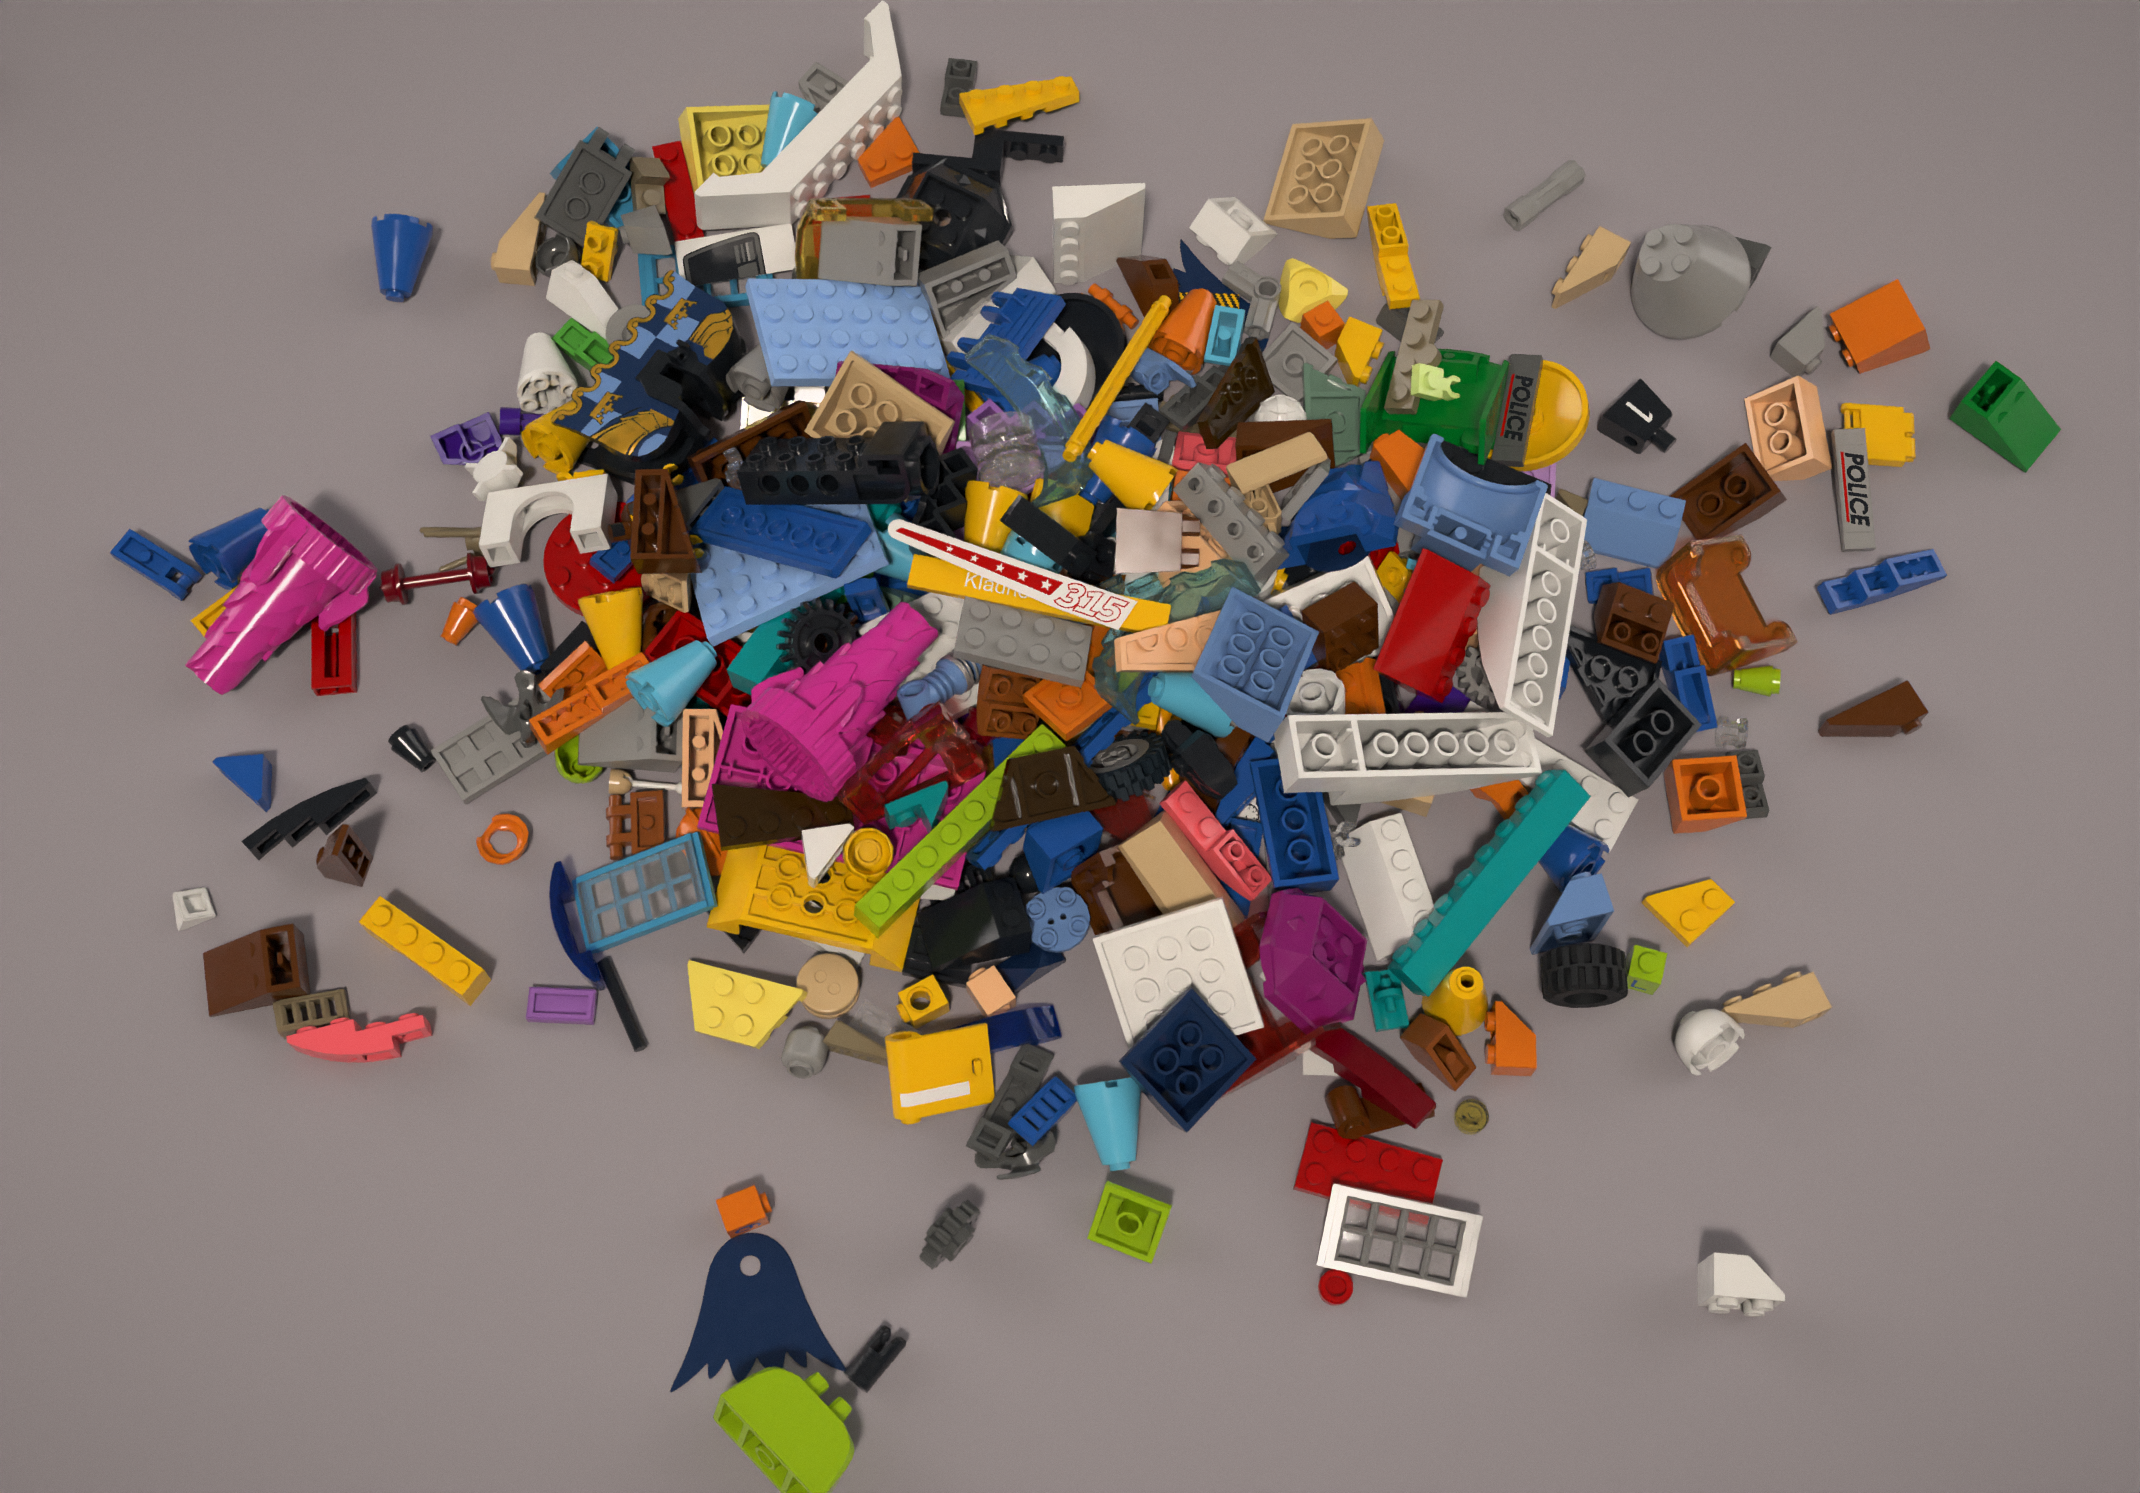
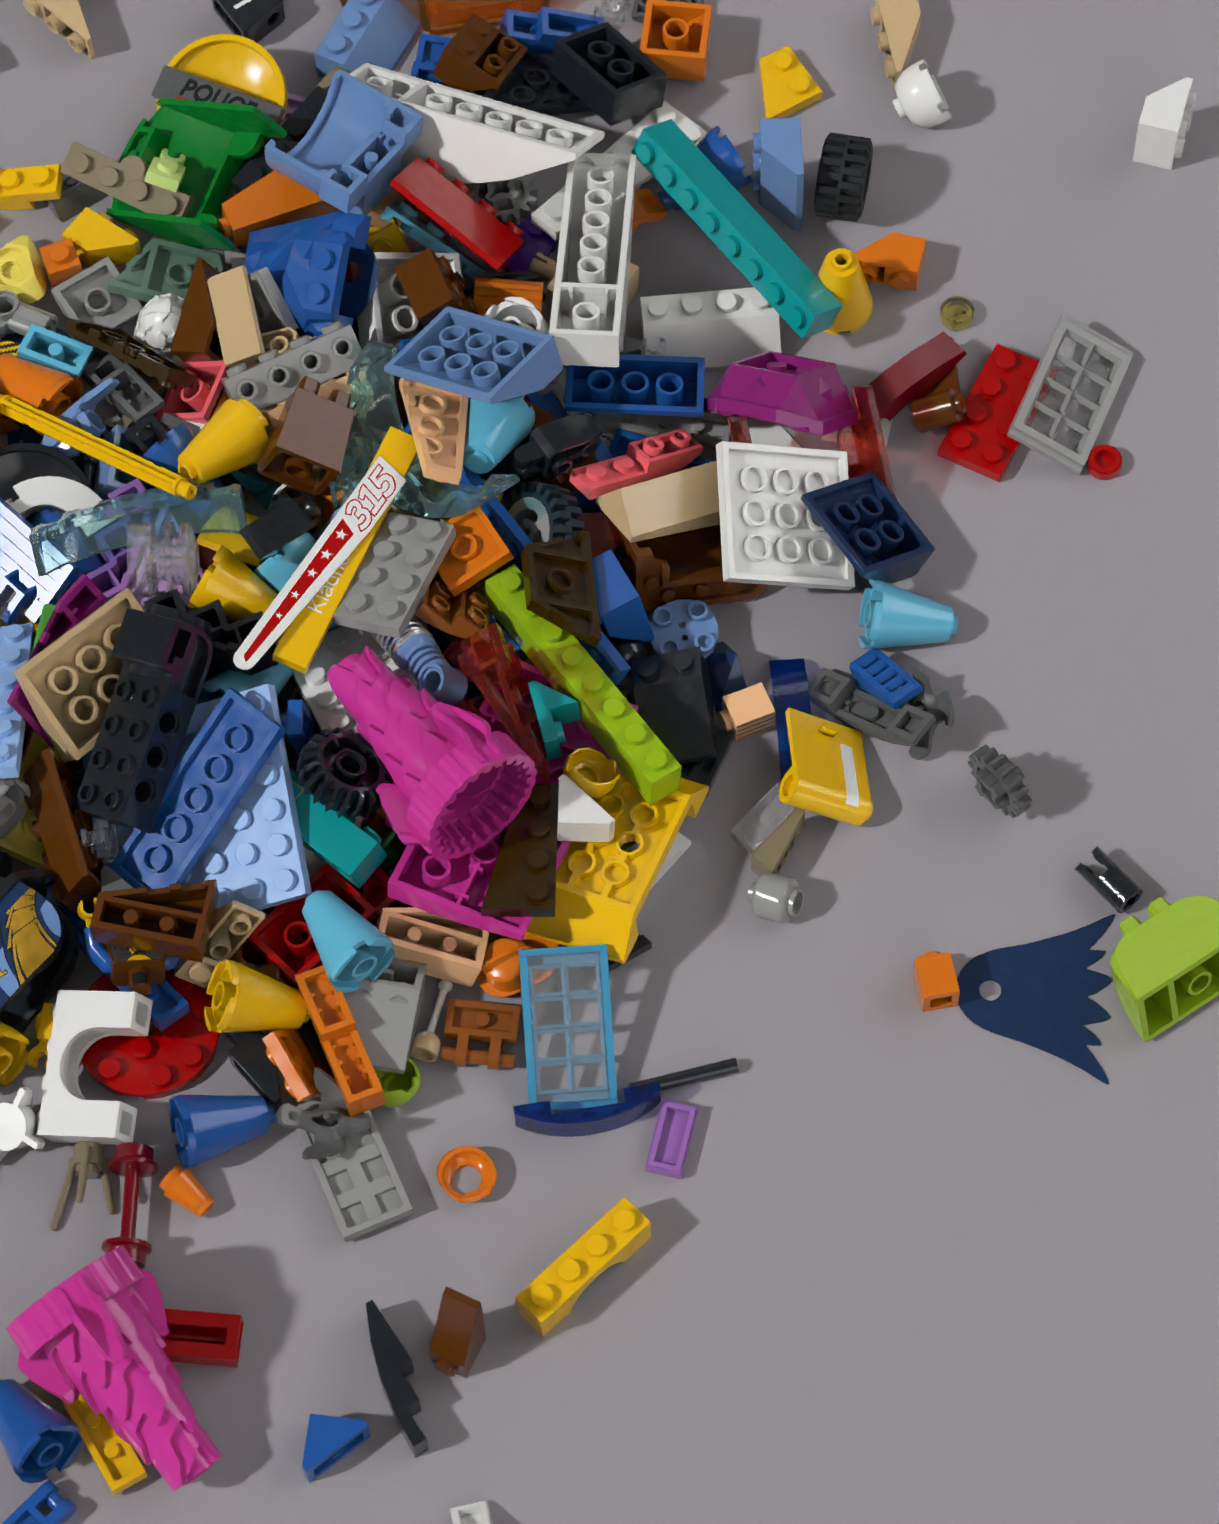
camera: 75 degrees left, 5 degrees down
(256, 970) = (570, 1451): reddish brown slope -> none
(295, 1005) = (629, 1429): dark tan slope -> none
(348, 1043) = (674, 1358): coral slope -> none
(411, 747) = (333, 1260): black cone -> none
(738, 1005) = (711, 955): light yellow wing -> none
(830, 986) = (707, 866): tan head -> none
(928, 989) = (740, 764): yellow brick -> none
(1129, 1222) = (1010, 624): lime slope -> none
(1386, 1000) = (841, 351): teal hips -> none
(1438, 1051) = (886, 324): dark orange slope -> none
(1645, 969) = (842, 121): lime brick -> none

